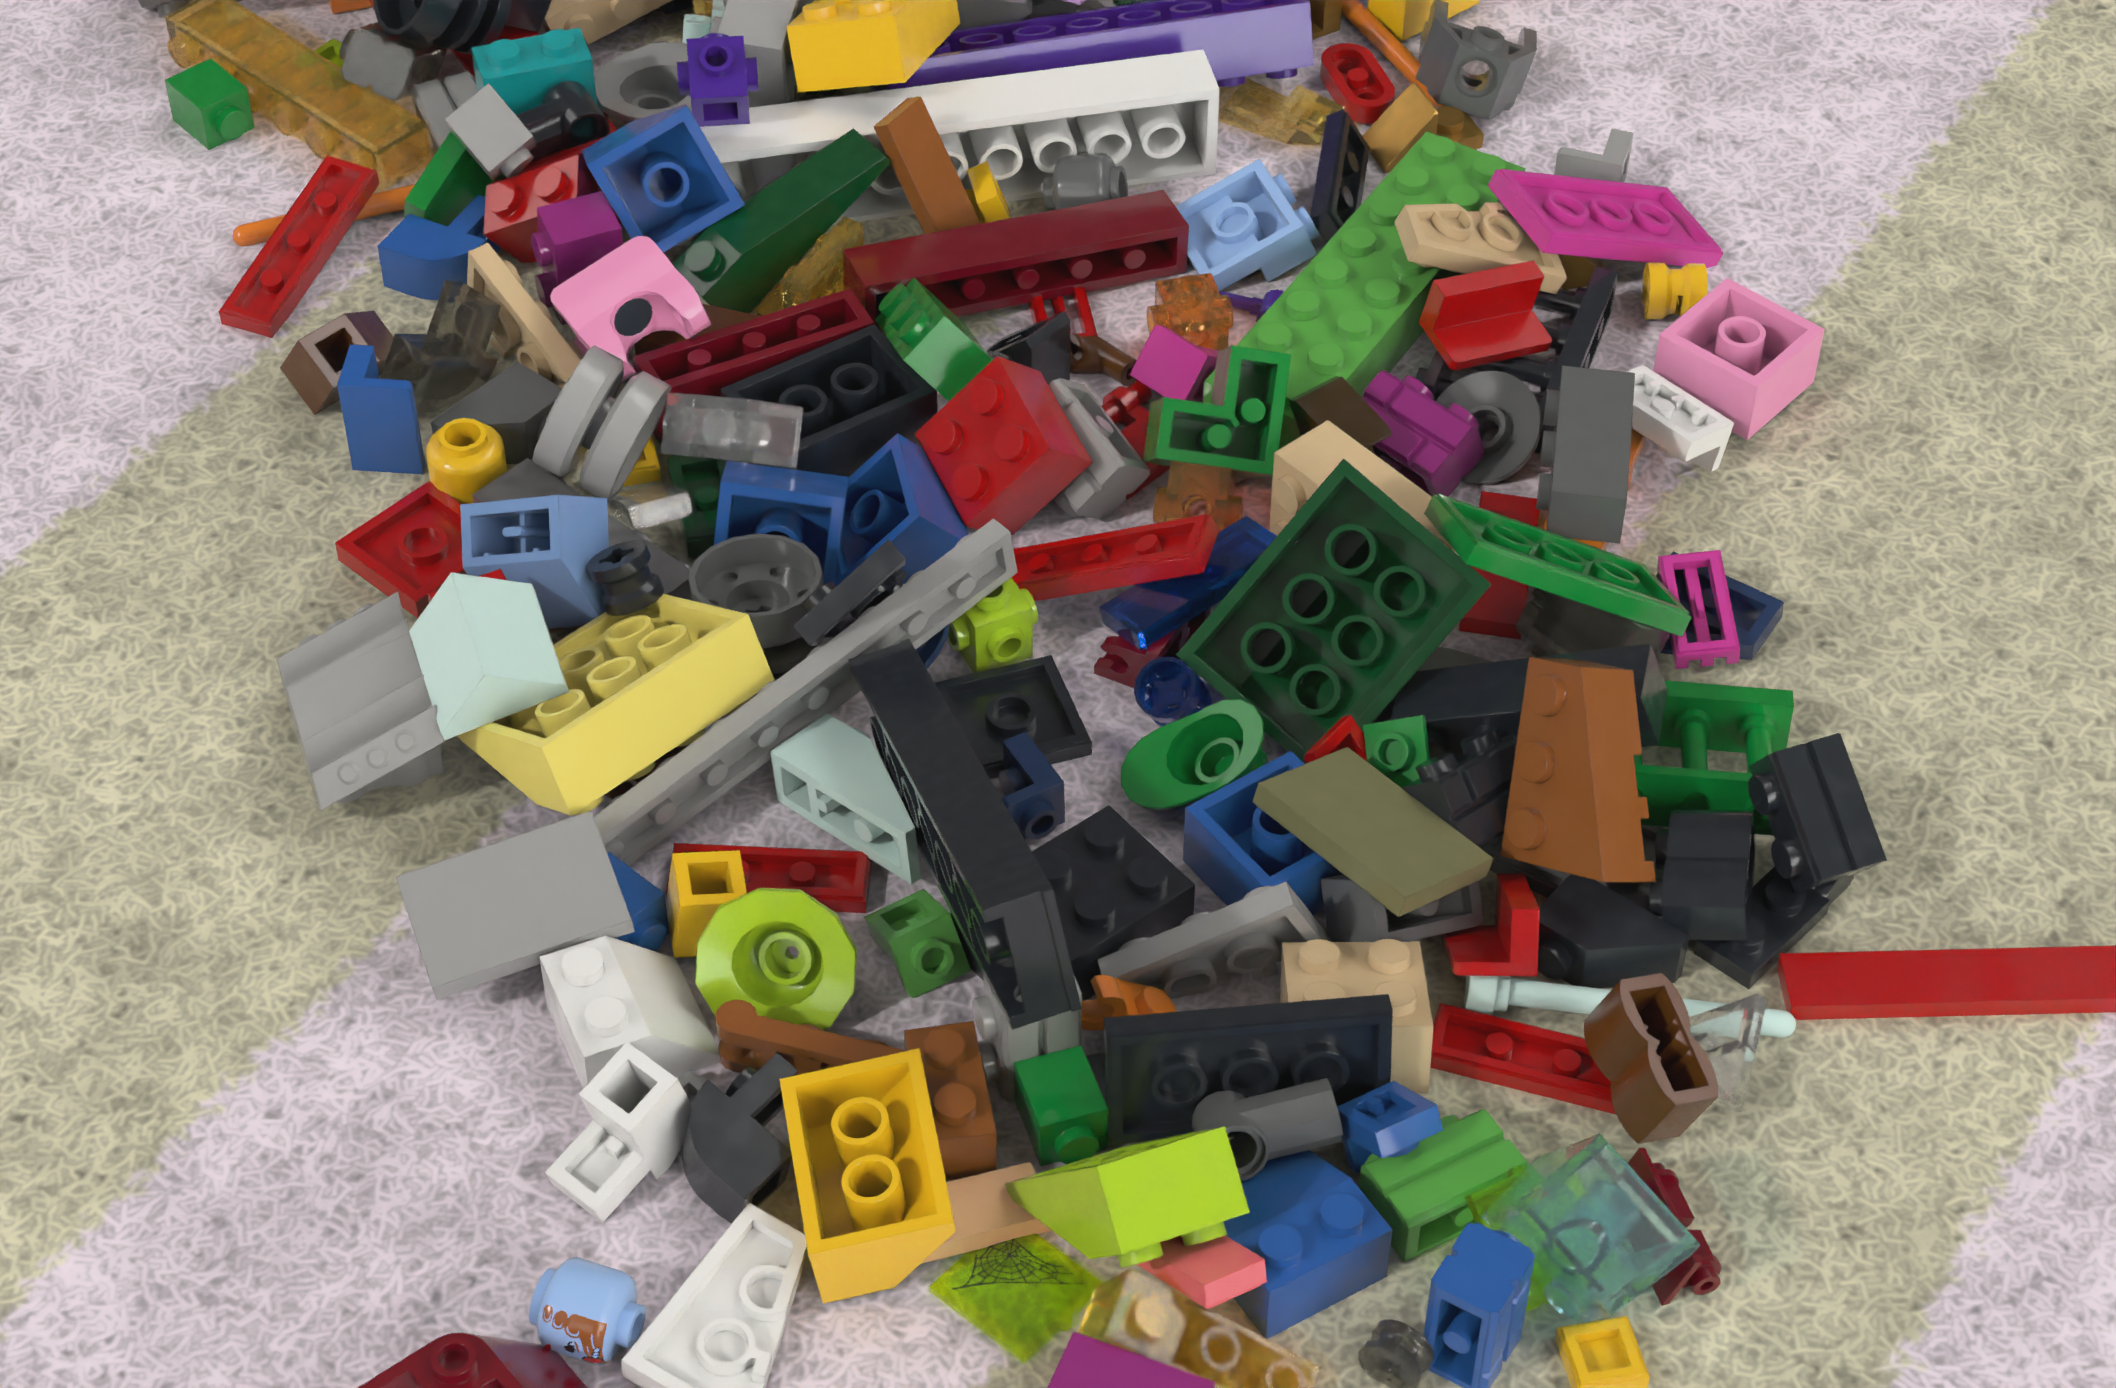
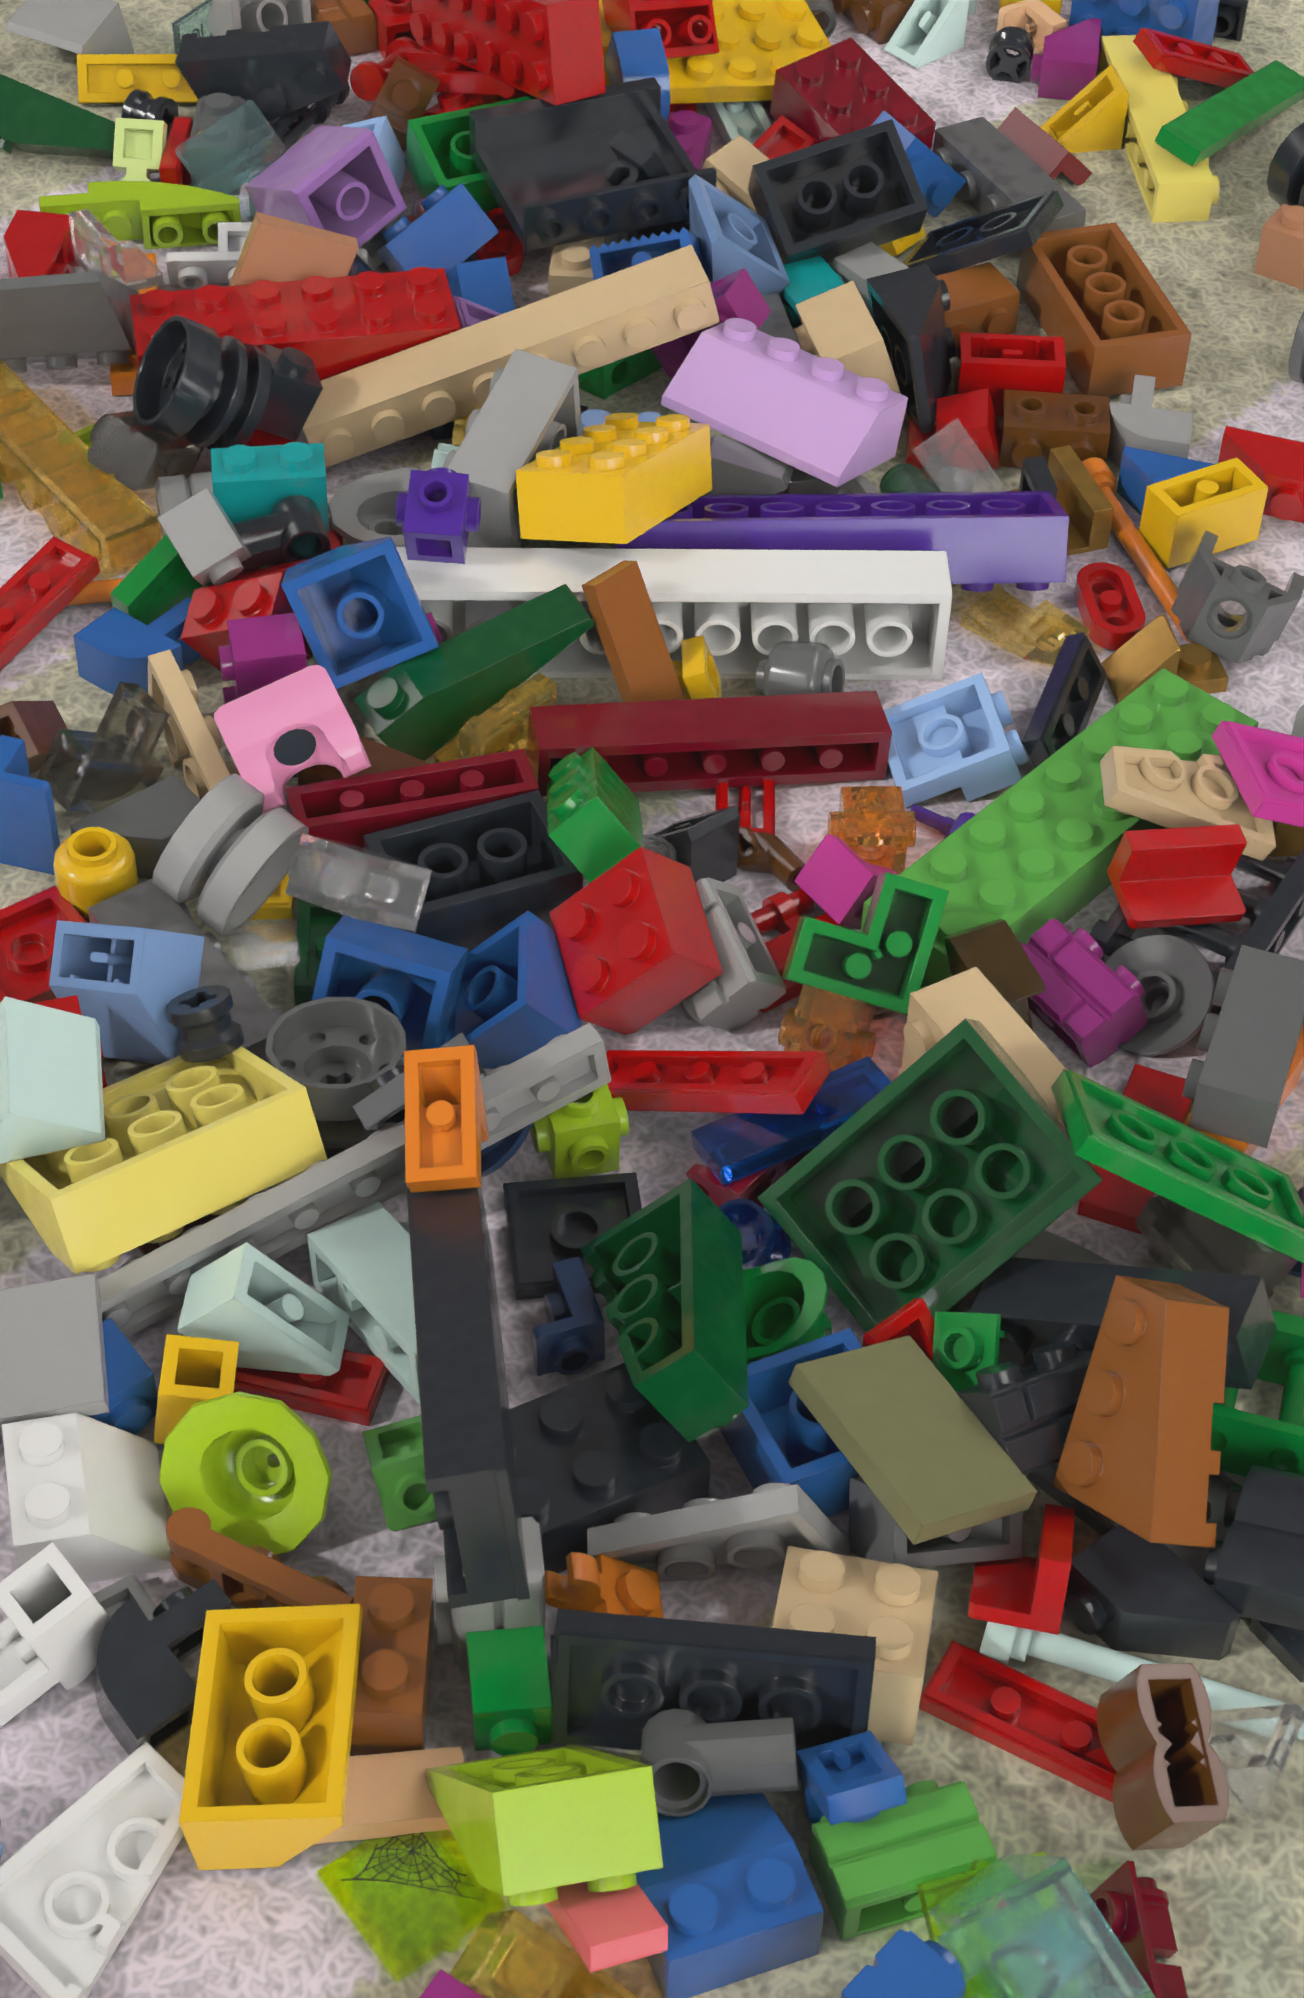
camera: 10 degrees right, 0 degrees up
(745, 814) = (267, 1311): none -> light aqua slope
(887, 620) = (443, 1119): none -> orange slope
(1134, 752) = (678, 1307): none -> dark green wedge

